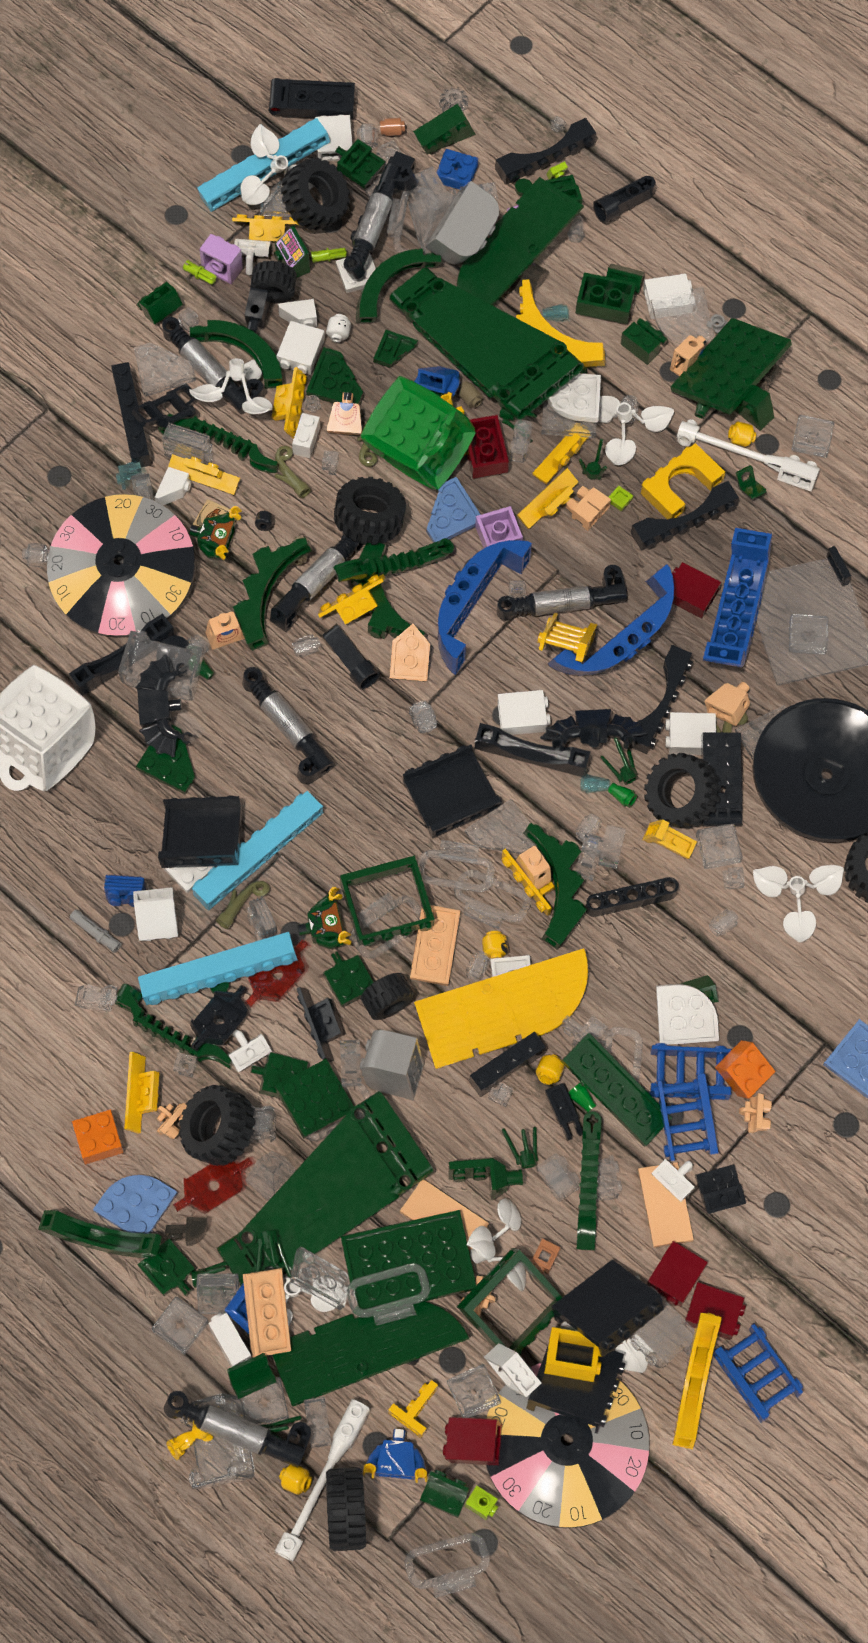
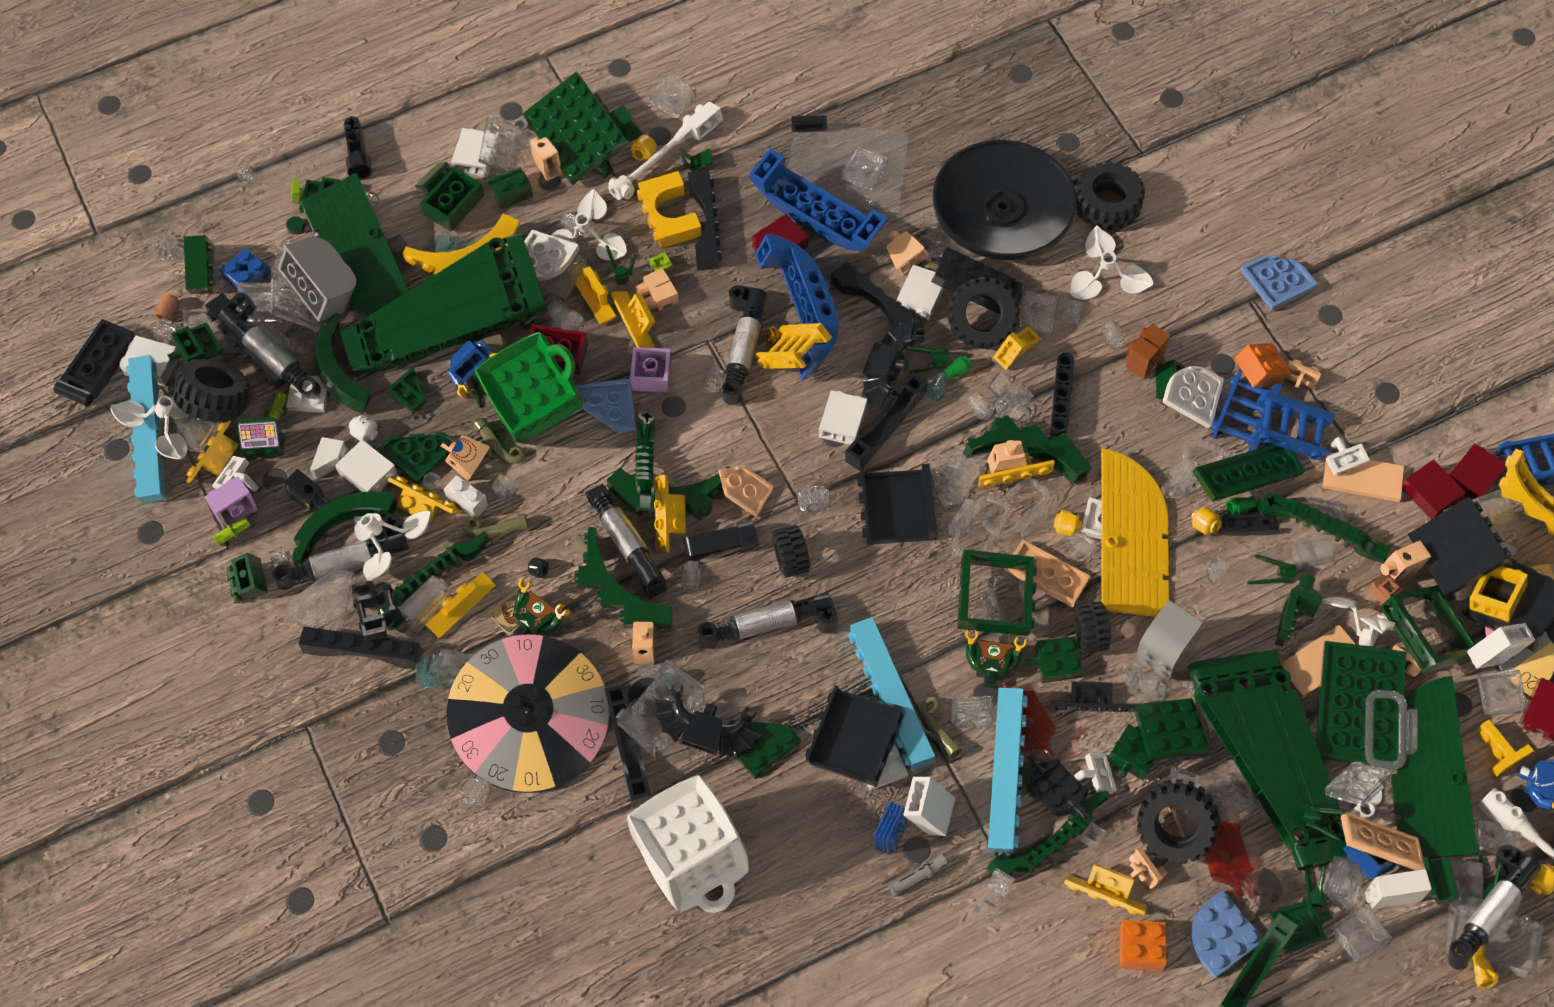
camera: 65 degrees left, 5 degrees down
(173, 486) = (459, 635): white slope -> none
(276, 278) = (282, 461): black tyre -> none
(358, 714) = (791, 551): none -> black tyre
(364, 525) = (587, 480): black tyre -> none
(468, 589) = (708, 423): blue slope -> none
(496, 1070) = (1196, 566): black arch -> none
(515, 165) = (270, 220): black arch -> none
(581, 1265) = (1399, 567): none -> light nougat torso
(584, 620) = (771, 335): none -> pearl gold plate
(720, 1189) = (1362, 429): black slope -> none
(724, 954) = (1148, 348): none -> dark orange piece

